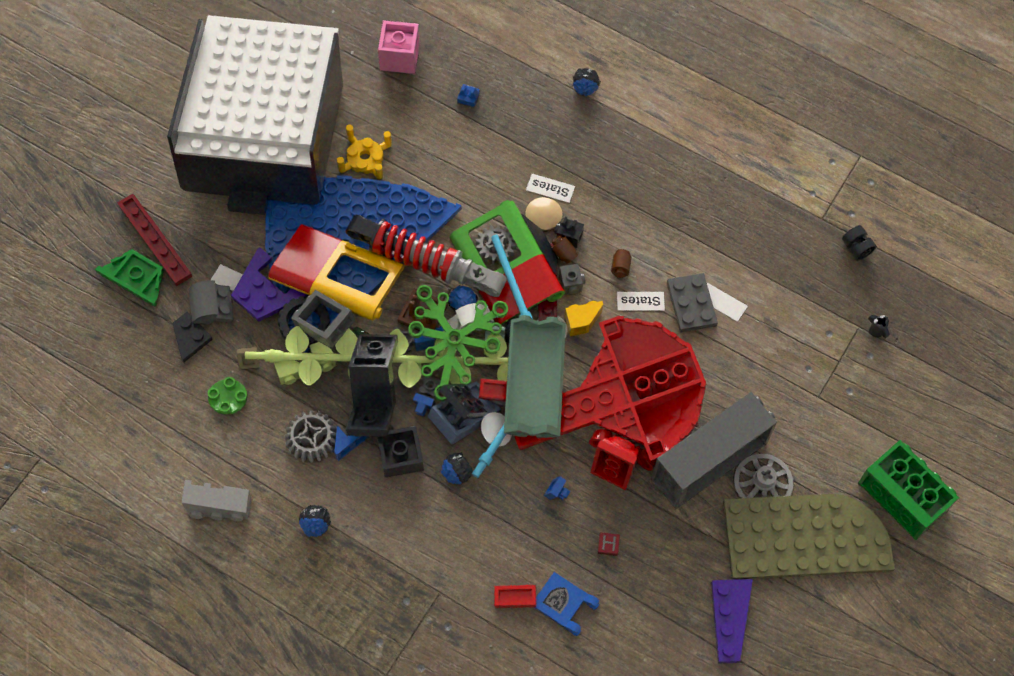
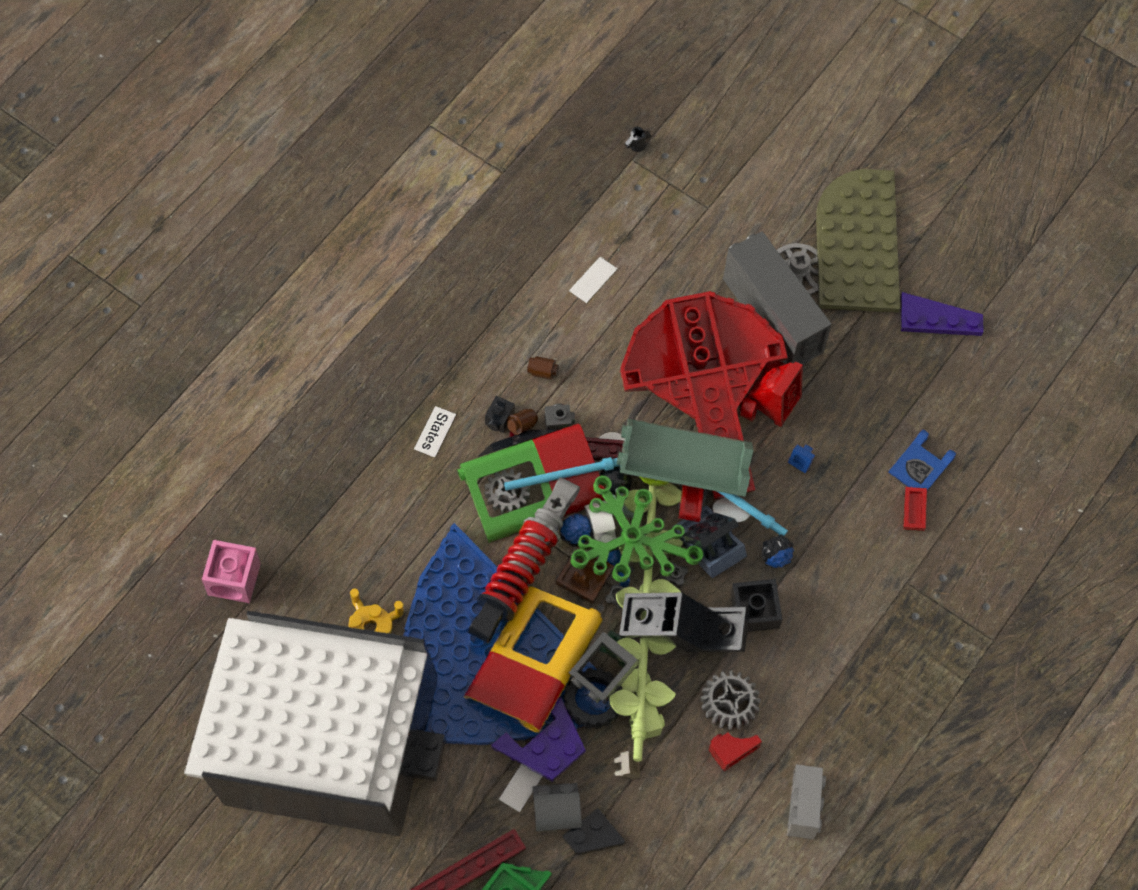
camera: 85 degrees left, 0 degrees up
(227, 396) = (674, 791): bright green dish -> none
(264, 437) = (731, 750): none -> red arch
(314, 520) = (831, 698): piece -> none
(346, 444) = (740, 663): blue slope -> none
(423, 403) = (699, 581): blue tile -> none
(468, 95) = (300, 506): blue tile -> none
(544, 213) = (469, 439): tan dish -> none
(582, 317) = (607, 412): yellow slope -> none
(586, 81) = (305, 376): piece -> none
(608, 544) = (860, 417): dark red tile -> none
(641, 301) = (585, 356): white sticker -> none
(692, 302) = (593, 307): dark grey plate -> none
(859, 242) = (541, 140): black wheel -> none
(908, 489) = (819, 142): green brick -> none

